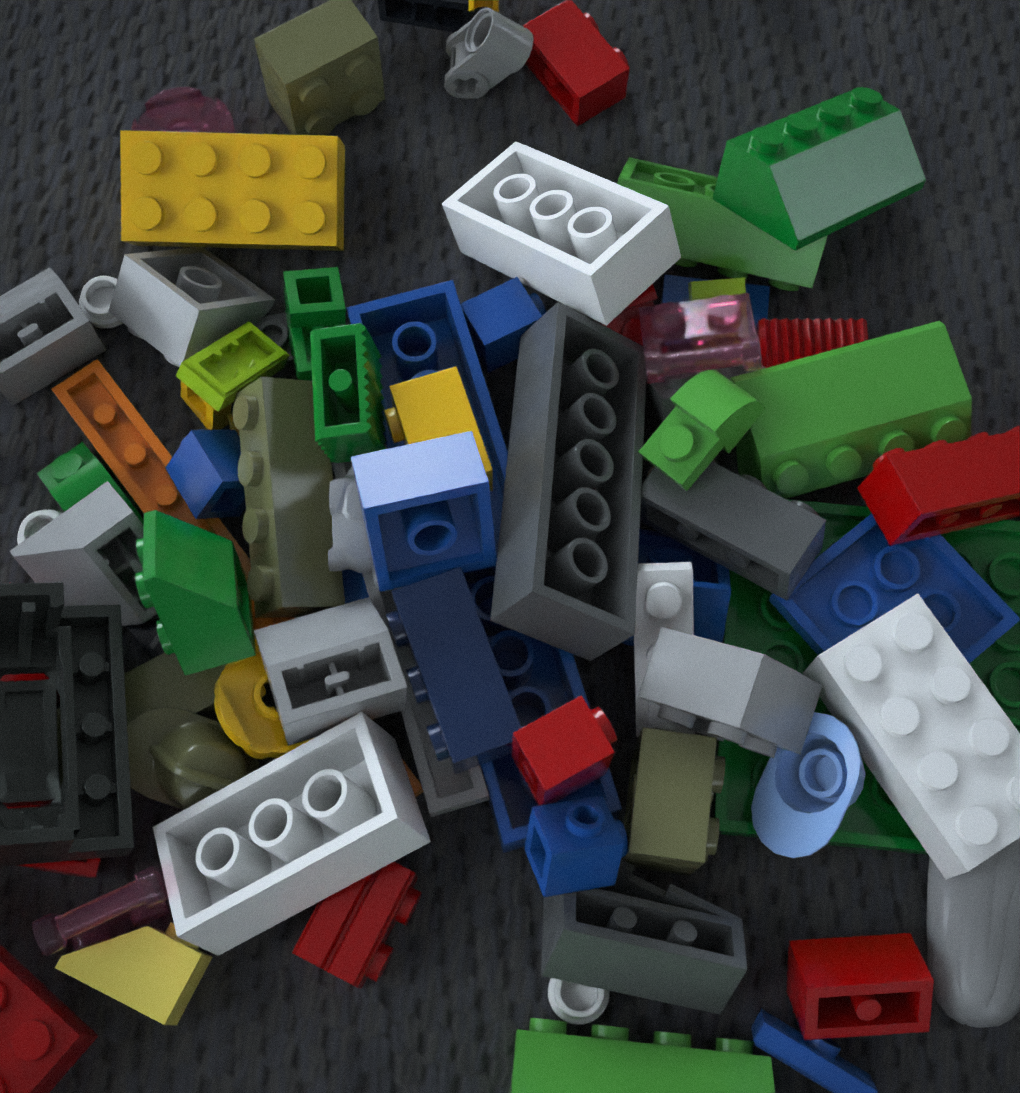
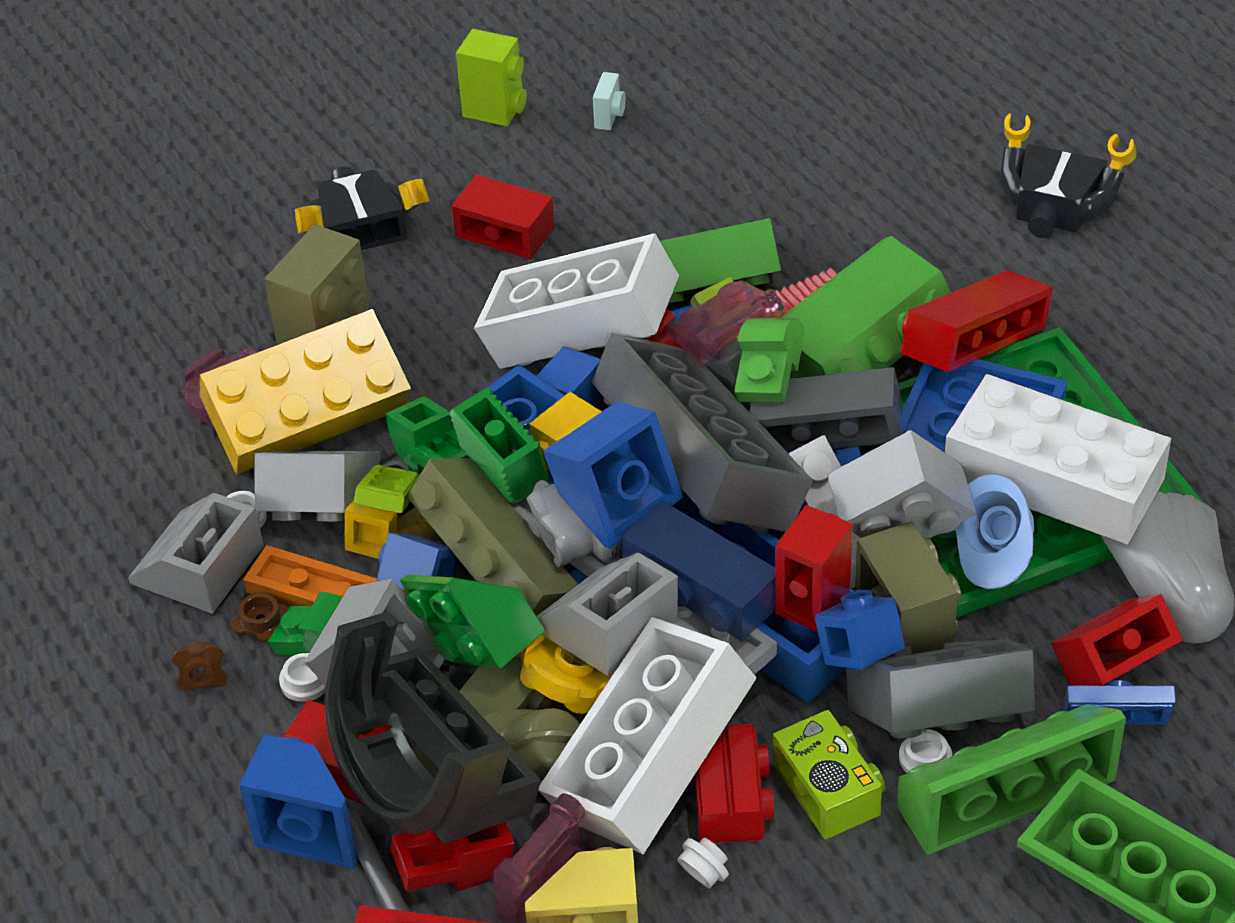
camera: 25 degrees left, 25 degrees down
(45, 424) = (255, 607): none -> reddish brown plate
(276, 994) = (703, 861): none -> white plate
(461, 963) = (828, 773): none -> lime brick
(485, 53) = (434, 230): light grey piece -> none
(820, 168) = (736, 188): green slope -> none

